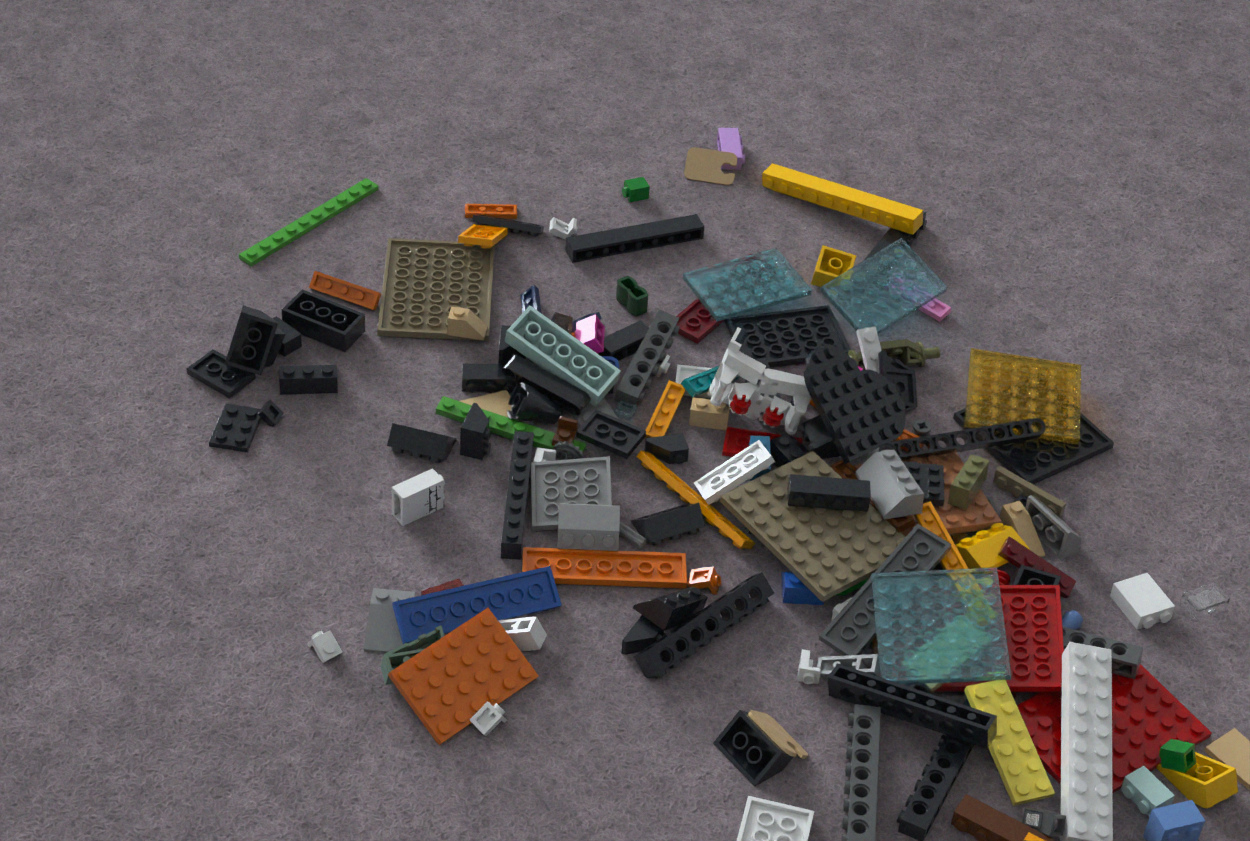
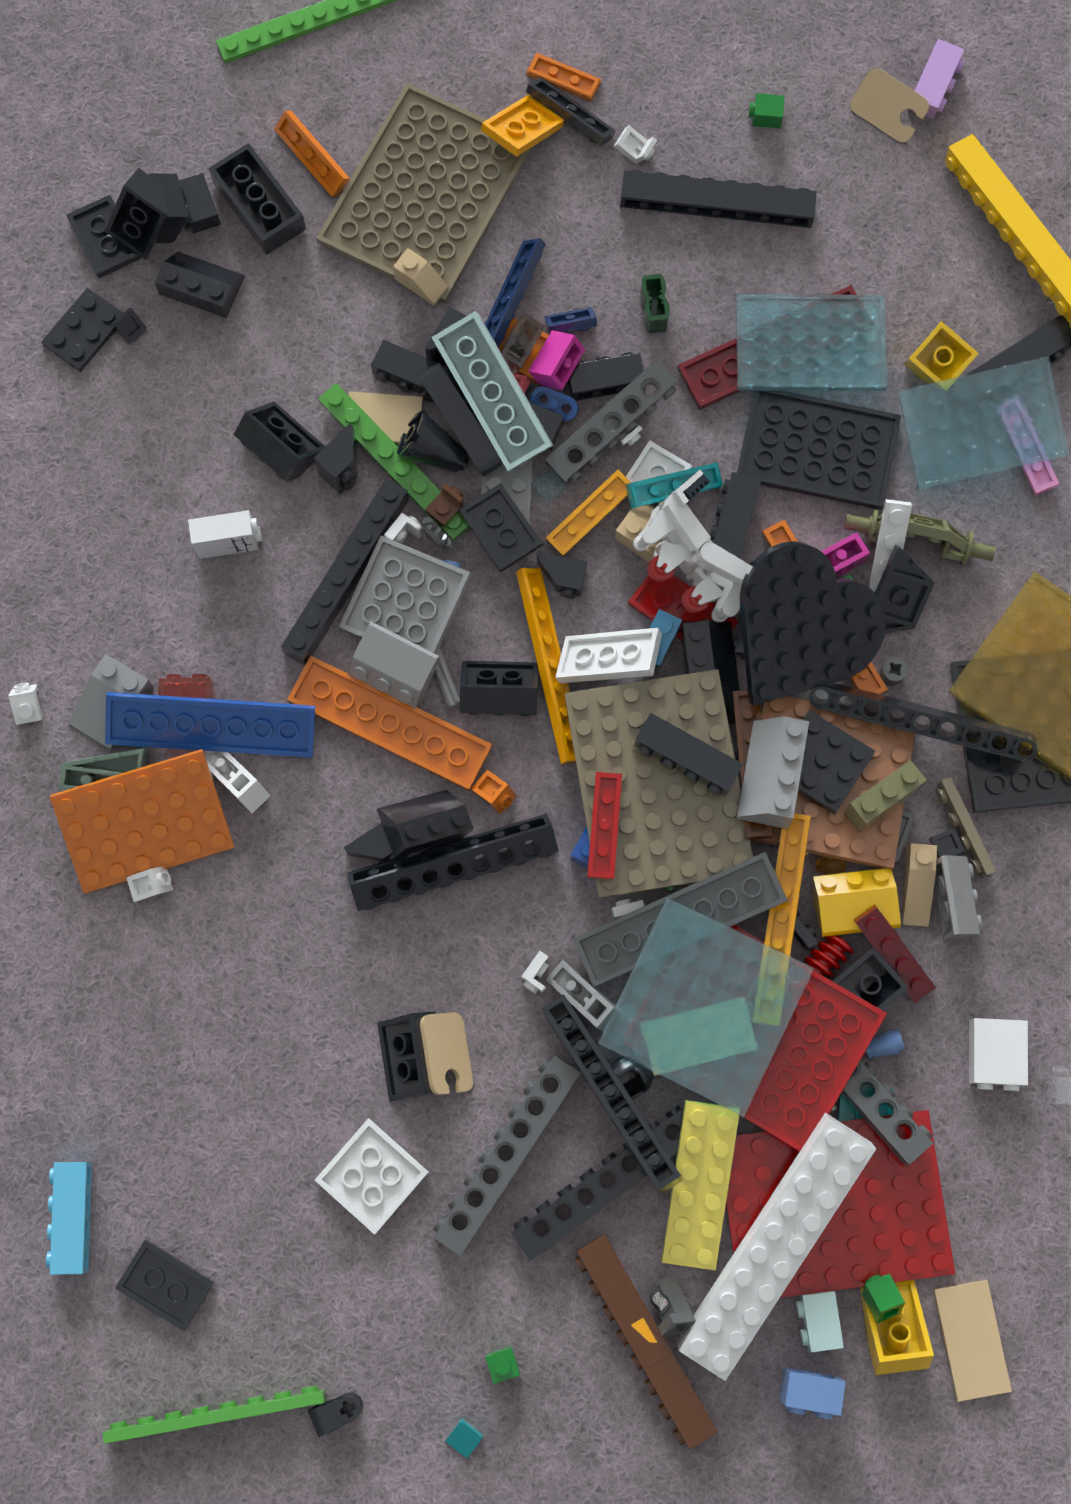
camera: 30 degrees right, 35 degrees up
(801, 550) = (604, 825): none -> red plate

